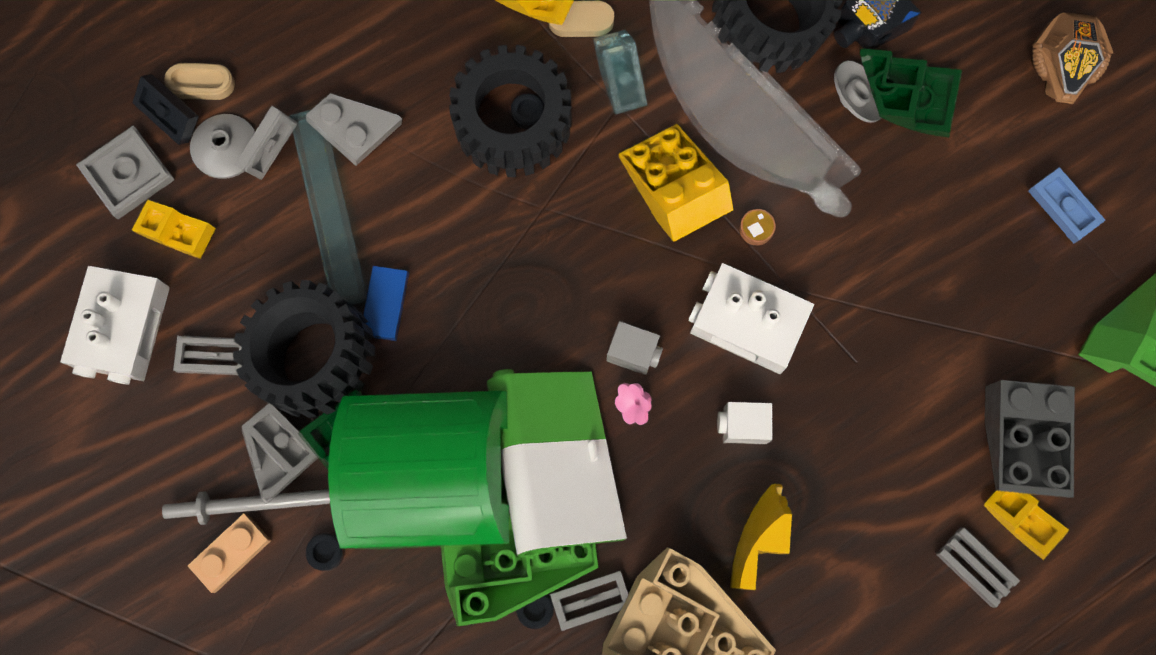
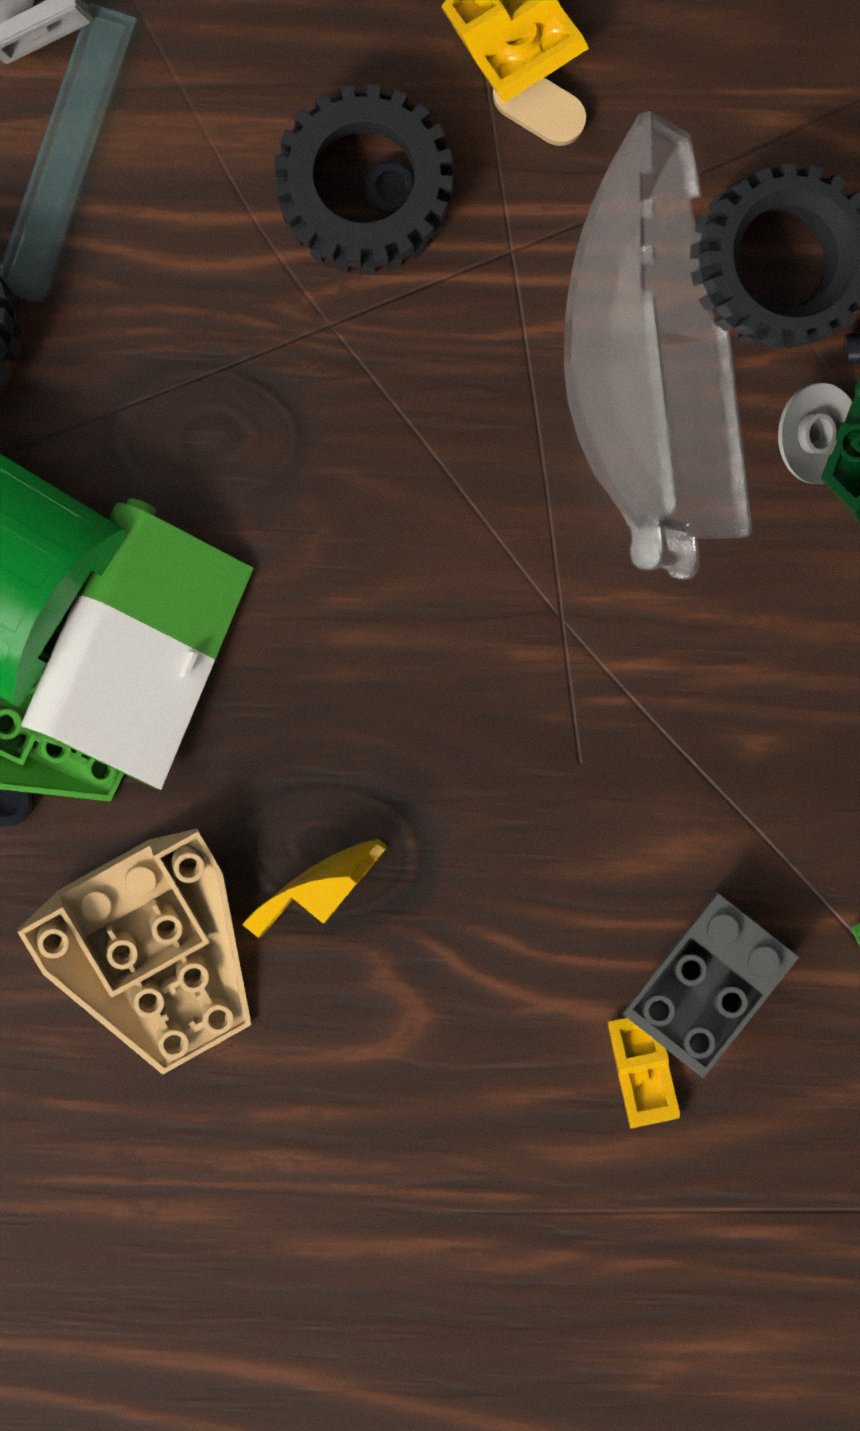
camera: 30 degrees right, 10 degrees up
(352, 125) = (158, 68): light grey wing -> none
(385, 301) = (61, 322): blue tile -> none
(561, 610) = (34, 822): light grey tile -> none
(620, 71) = (538, 211): clear light blue slope -> none
(633, 403) = (276, 639): bright pink plant -> none
(634, 348) = (319, 575): light grey brick -> none
(677, 182) = (511, 399): yellow slope -> none
(746, 423) = (391, 747): white brick -> none
(750, 318) = (483, 626): white piece -> none
(757, 227) = (574, 521): tile -> none
(1001, 589) = (556, 1129): light grey tile -> none

